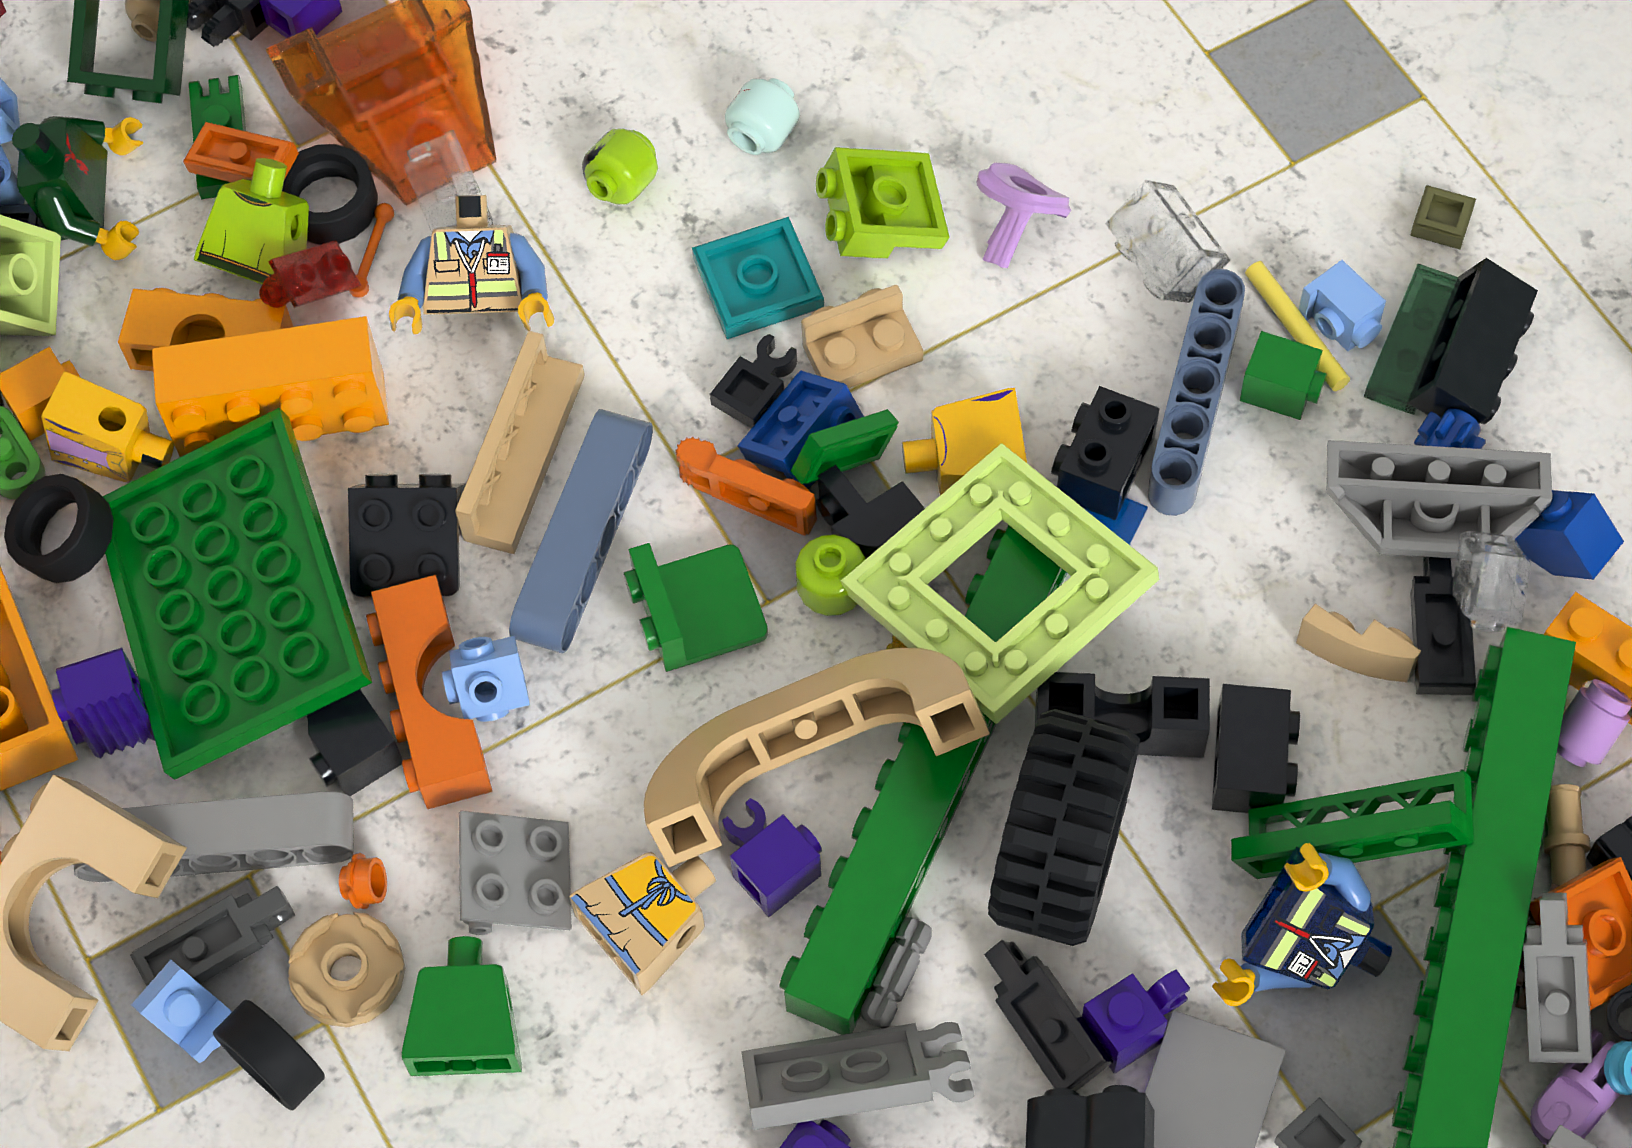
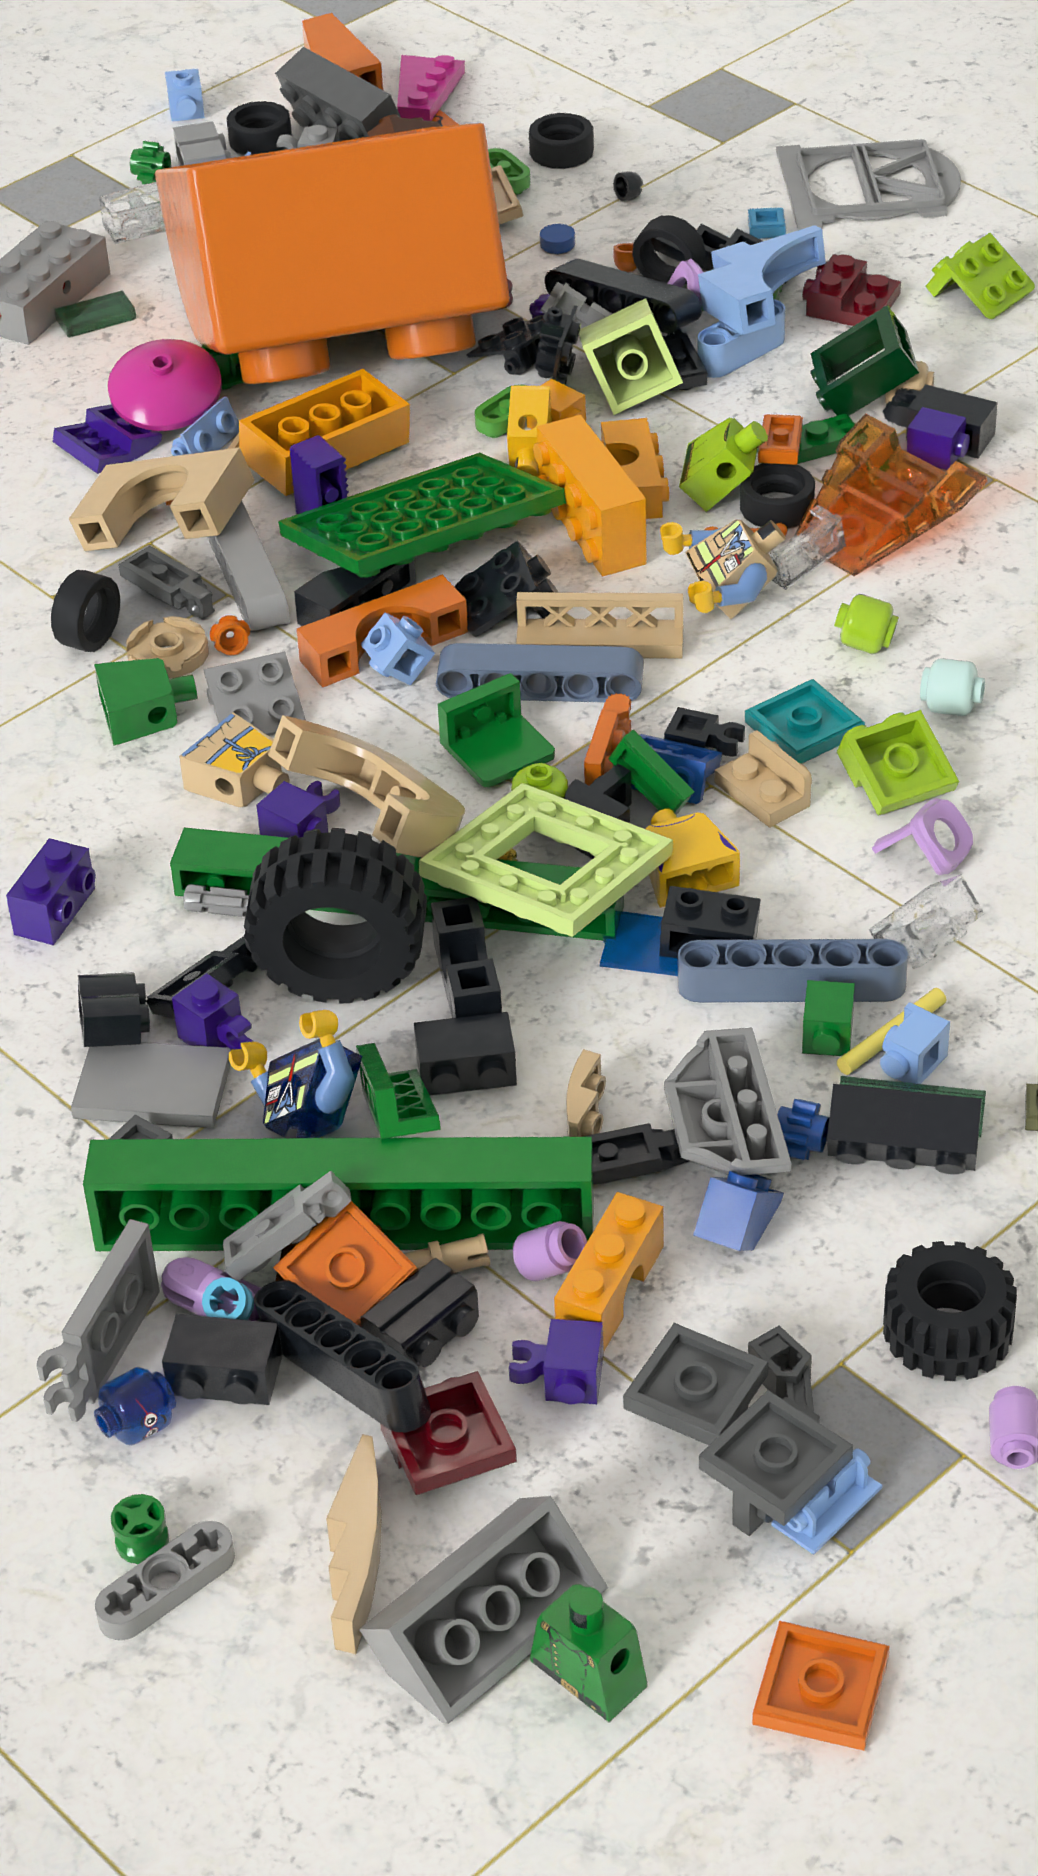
camera: 75 degrees right, 20 degrees down
(31, 515) = (450, 439): black tyre -> none
(65, 178) = (731, 371): dark green torso -> none
(183, 1010) = (120, 565): light blue bracket -> none
(308, 276) = (691, 489): clear red hinge -> none
(853, 1074) = (131, 878): light grey tile -> none
(1491, 580) = (640, 1127): clear brick -> none

